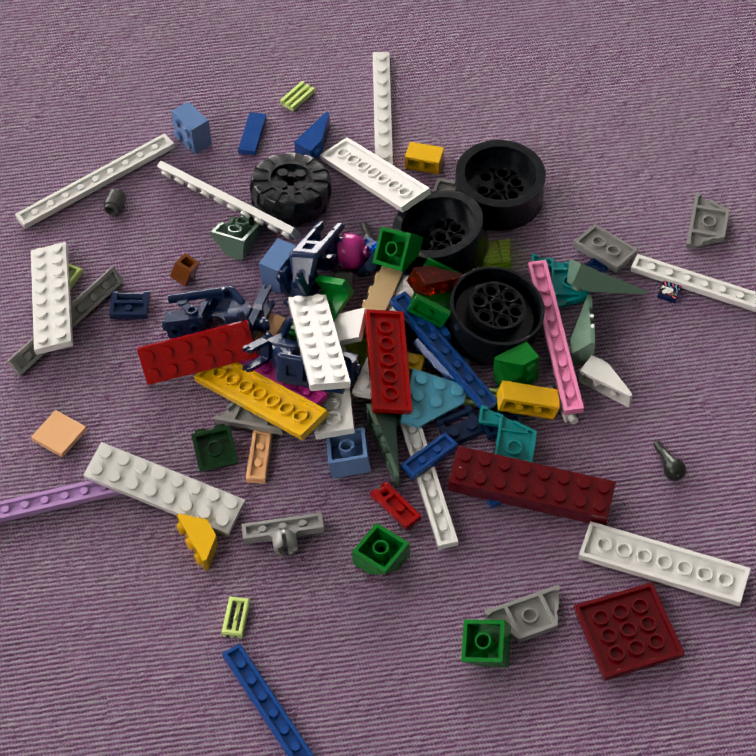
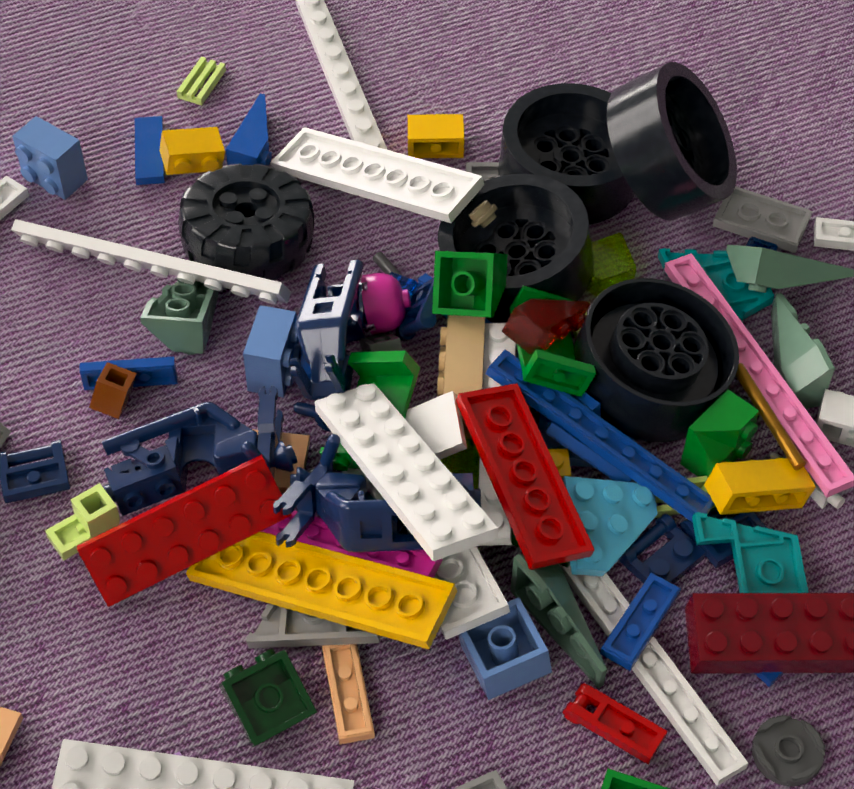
camera: 20 degrees left, 0 degrees up
(152, 333) = (92, 515): none -> yellowish green brick
(207, 263) = (149, 371): none -> blue tile
(275, 138) = (191, 150): none -> yellow brick
(422, 211) = (483, 214): none -> dark tan plate
(485, 542) = (788, 751): none -> dark grey tile
(548, 362) = (769, 418): none -> pearl gold bar
(555, 189) = (671, 142): none -> black wheel

